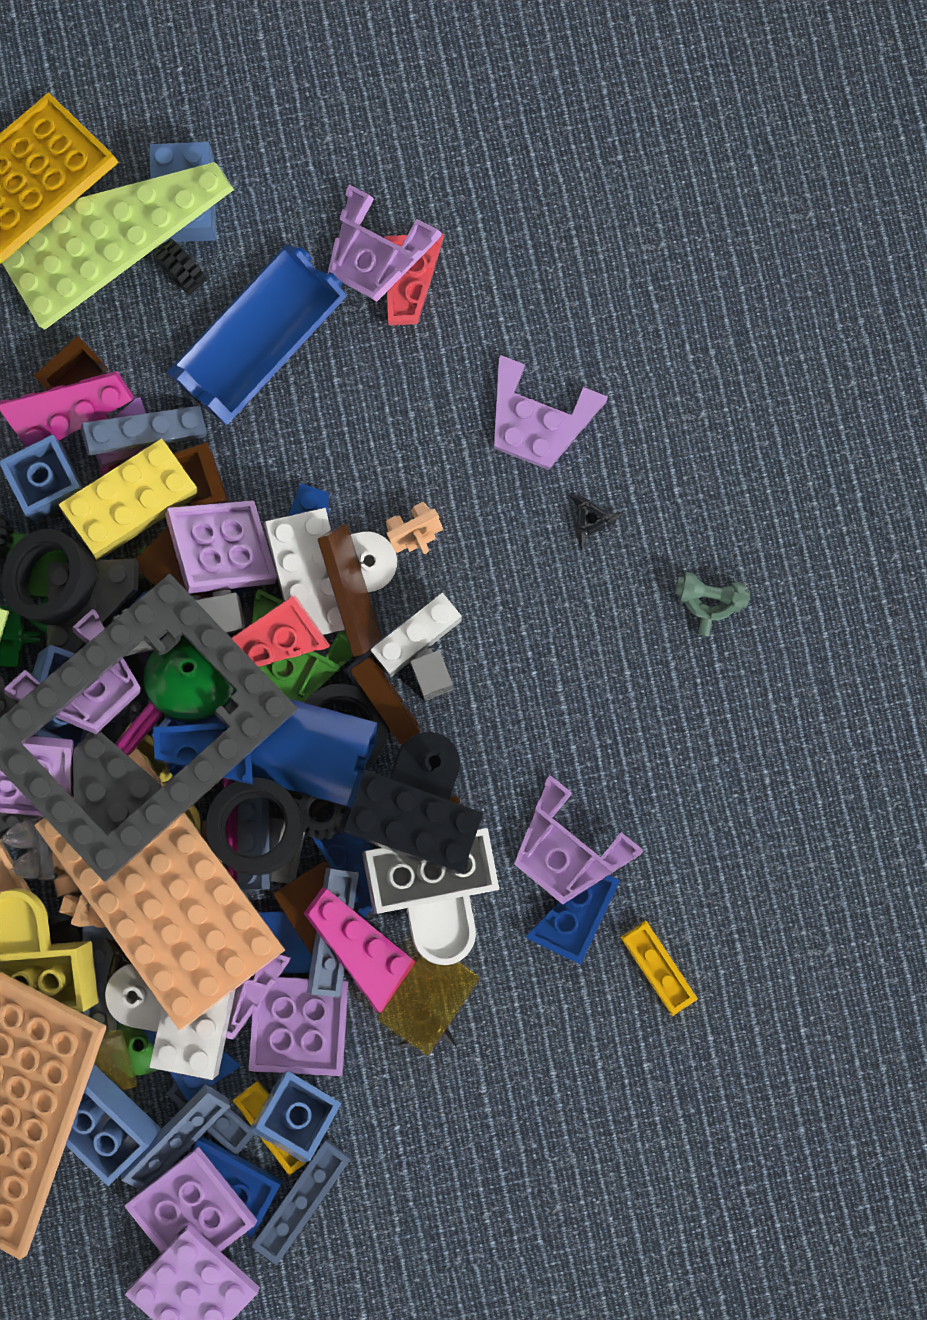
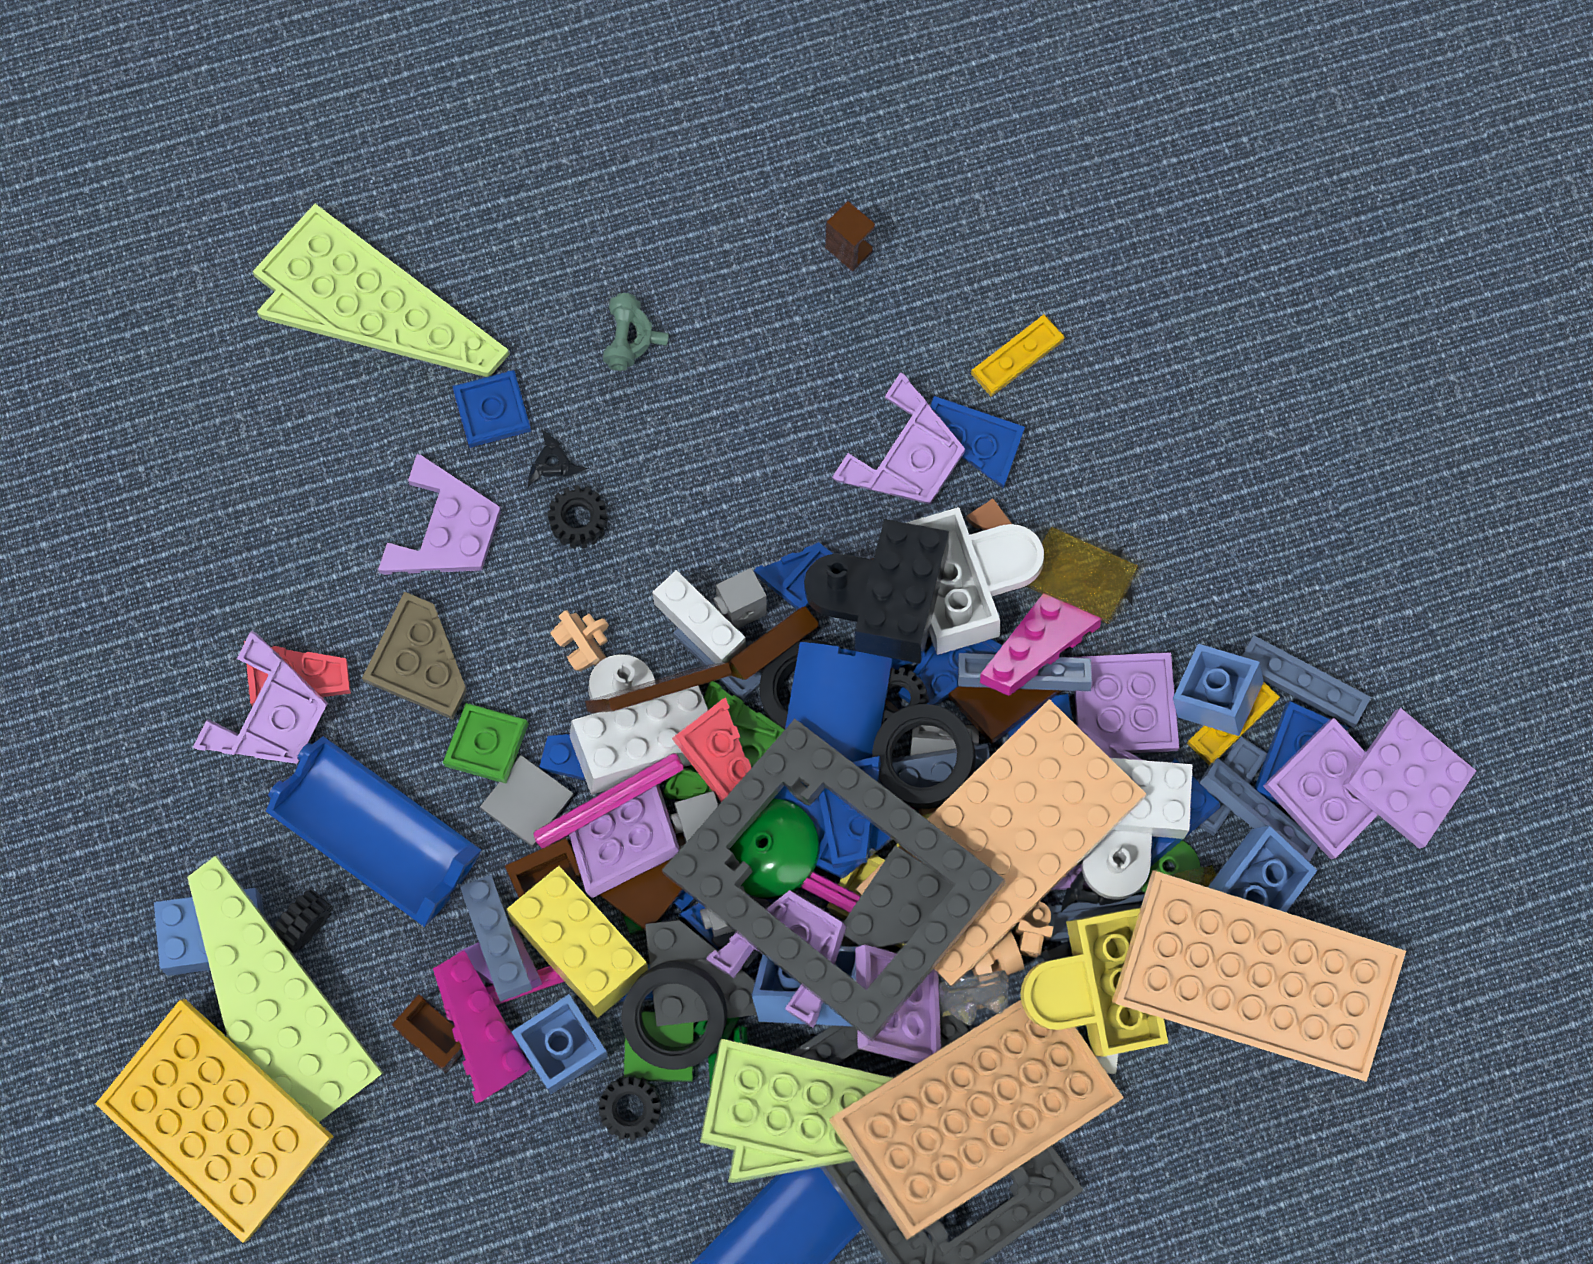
camera: 95 degrees left, 10 degrees down
(253, 538) = (608, 800): none -> dark pink axle
(271, 470) = (526, 800): none -> light grey tile
(327, 437) = (485, 743): none -> bright green tile
(412, 384) = (417, 659): none -> dark tan plate
(460, 728) = (788, 574): none -> blue wing
(496, 919) = (988, 516): none -> nougat tile
(533, 518) = (571, 499): none -> black tyre
(648, 468) = (491, 408): none -> blue tile
(773, 348) = (350, 291): none -> yellowish green wing
(790, 816) = (846, 236): none -> reddish brown panel

